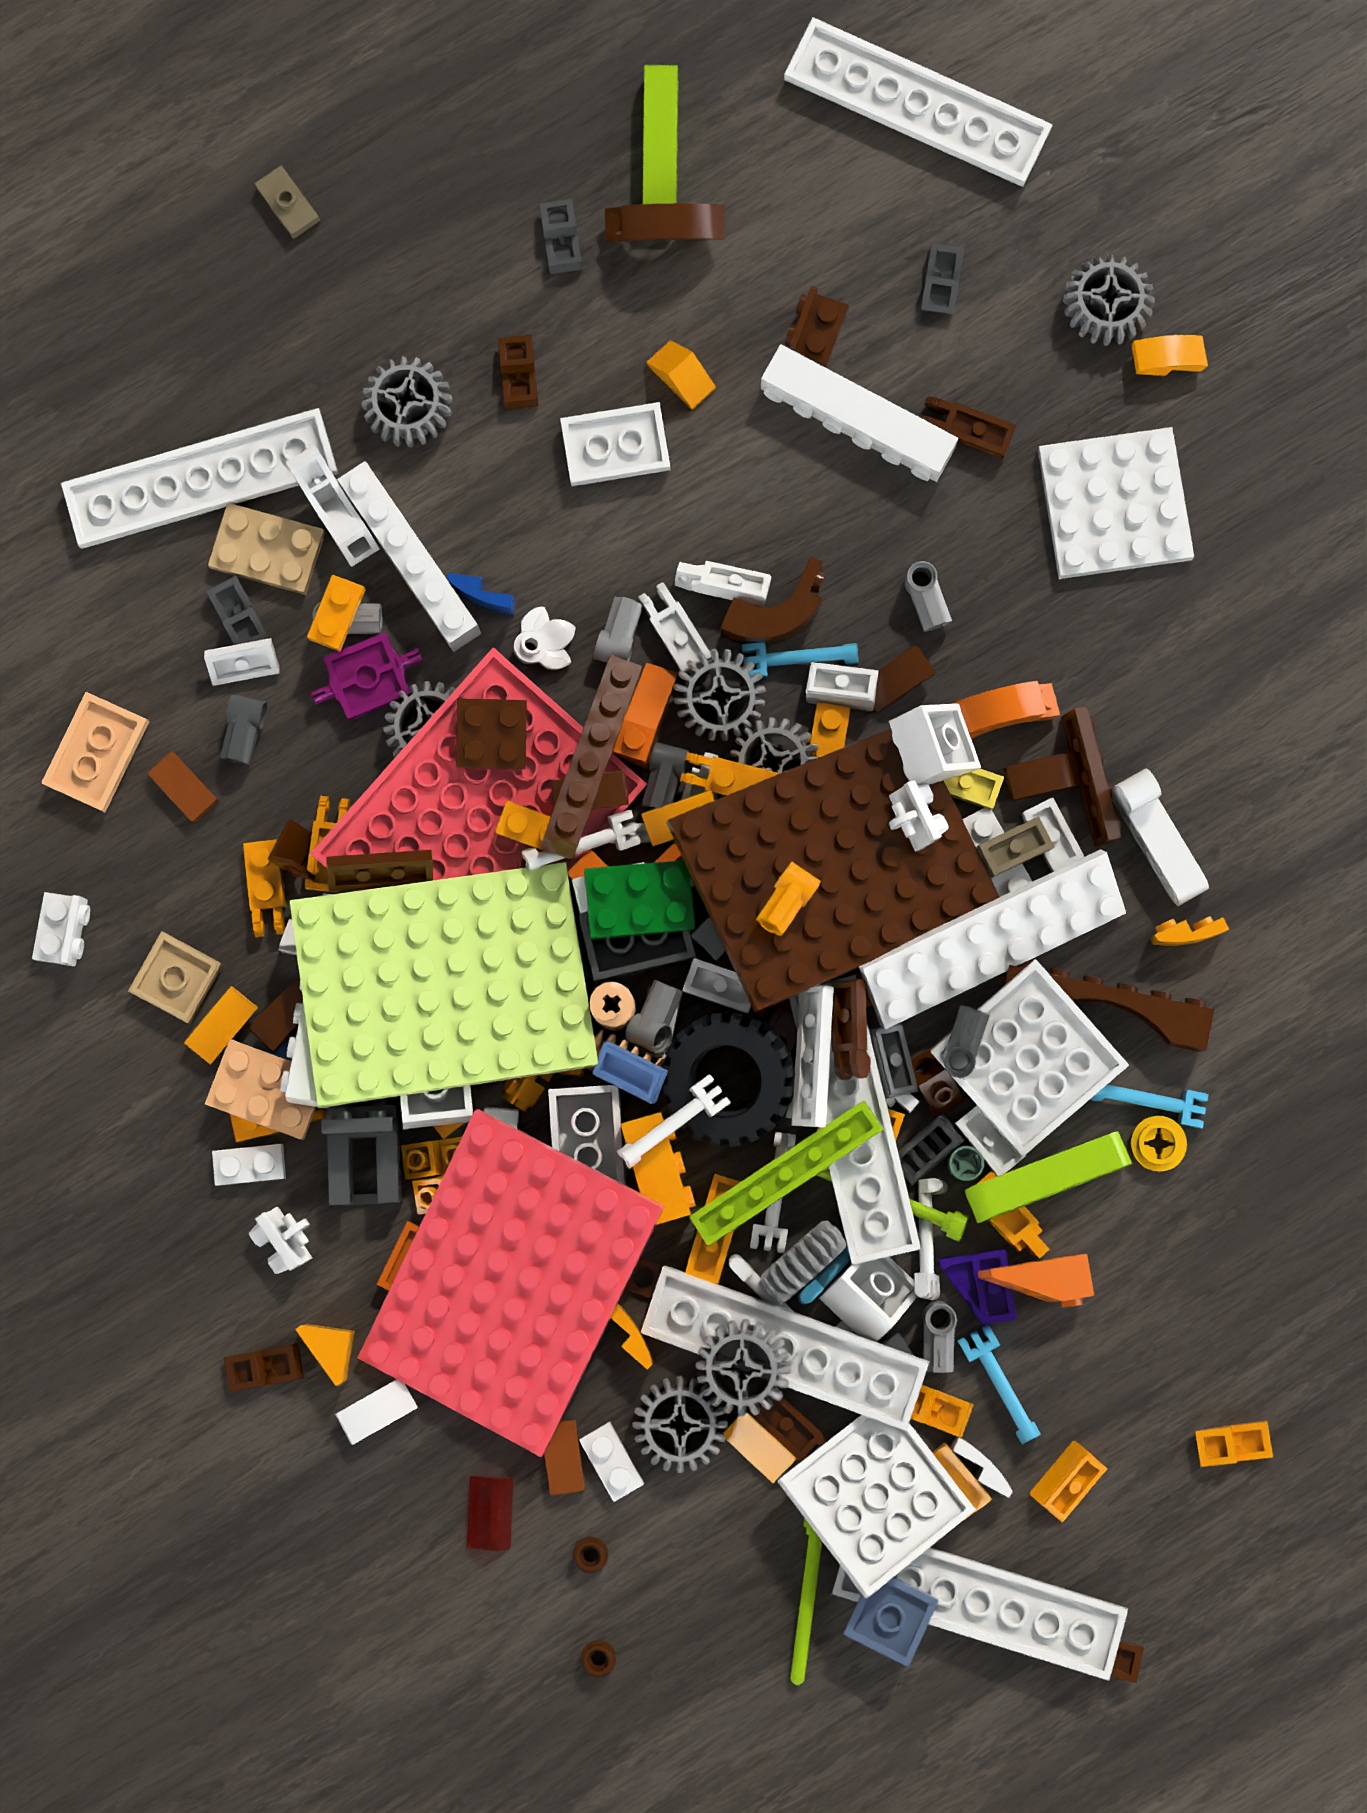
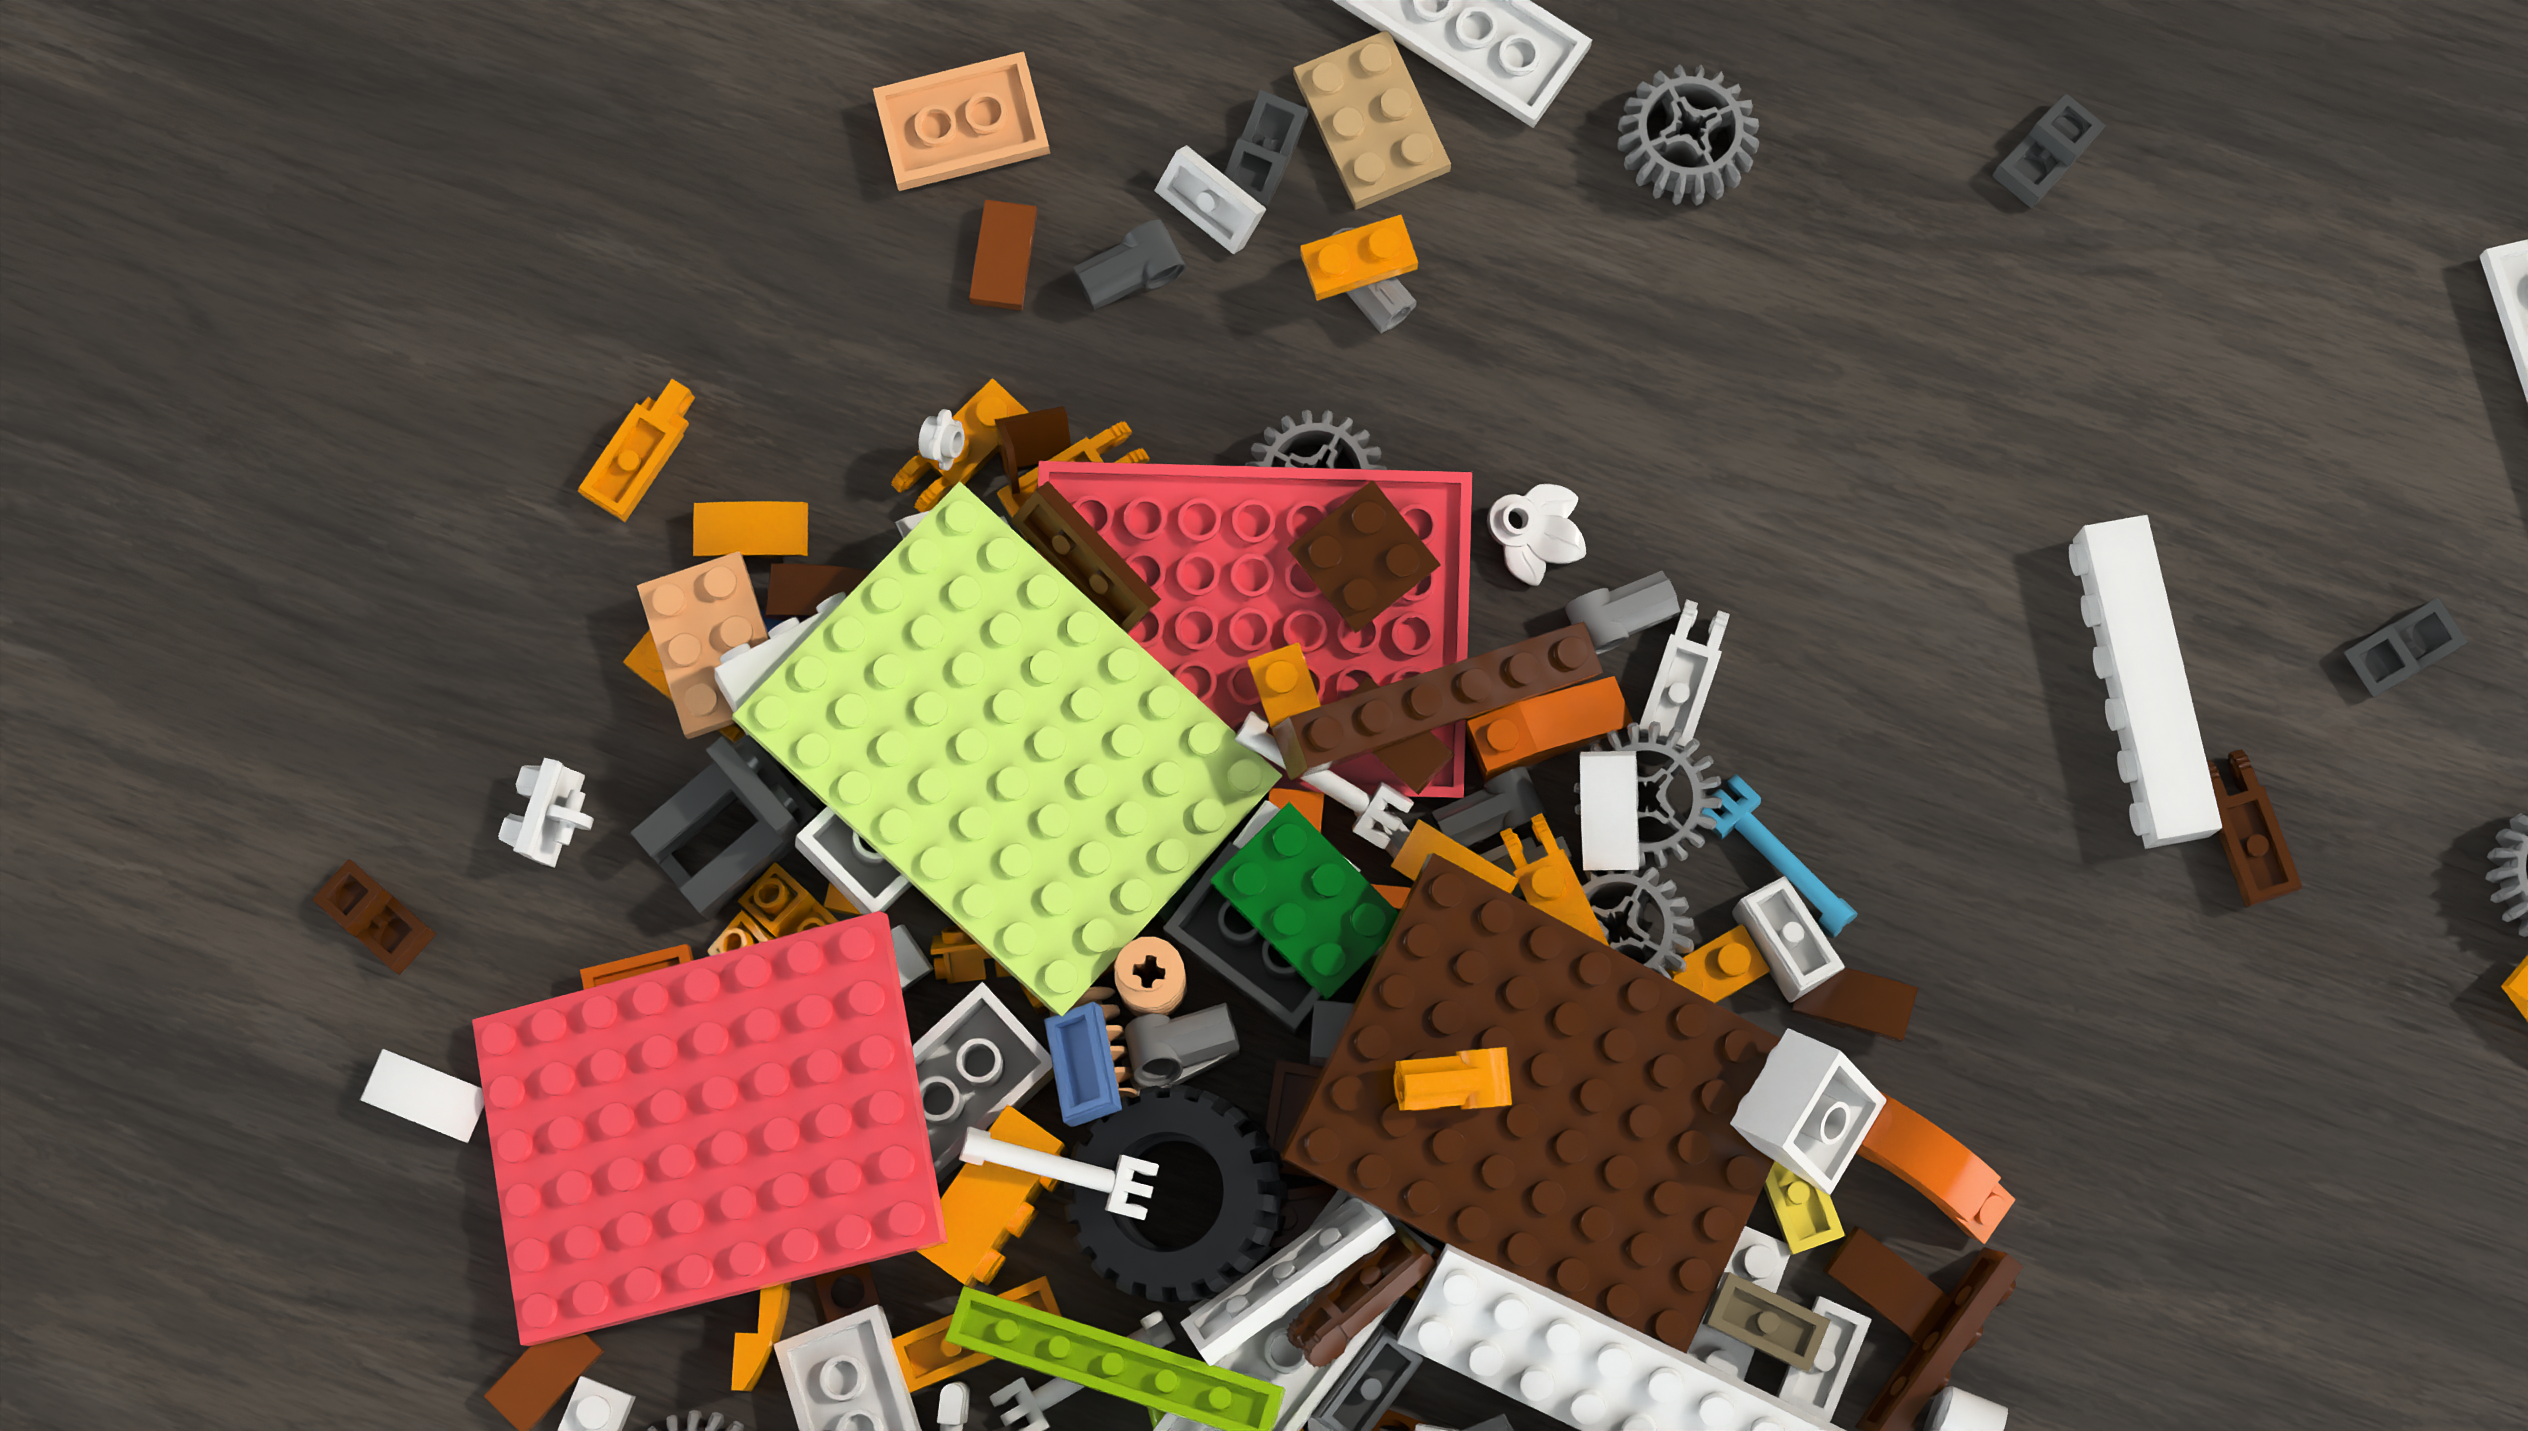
camera: 45 degrees right, 5 degrees down
(60, 929) = (717, 253): white bracket -> none
(133, 1050) = (638, 452): none -> light orange hinge
(175, 977) = (765, 431): tan plate -> none
(249, 1164) = (608, 700): white plate -> none
(256, 893) = (941, 439): none -> white plate
(331, 1348) = (457, 977): light orange slope -> none
(332, 505) = (1486, 148): white arch -> none
(366, 676) = (1314, 357): magenta plate -> none
(409, 556) = (1502, 289): white brick -> none
(473, 590) = (1527, 398): blue slope -> none
(490, 1513) = (406, 1339): clear red slope -> none
(518, 372) = (1839, 235): reddish brown slope -> none
(615, 444) = (1850, 420): white plate -> none
(660, 134) = (2266, 173): lime beam -> none
(664, 222) = (2175, 256): reddish brown arch -> none
(682, 373) = (2007, 430): light orange slope -> none
(713, 718) = (1609, 810): none -> white slope
(716, 985) = (1279, 1082): white plate -> none
(724, 582) = (1794, 689): white hinge -> none
(775, 624) = (1802, 798): reddish brown arch -> none
(817, 327) = (2208, 543): reddish brown bracket -> none
(914, 815) = (1695, 1157): white hips -> none
(927, 599) = (1987, 956): light grey piece -> none
(1115, 503) = (2315, 1095): white plate -> none

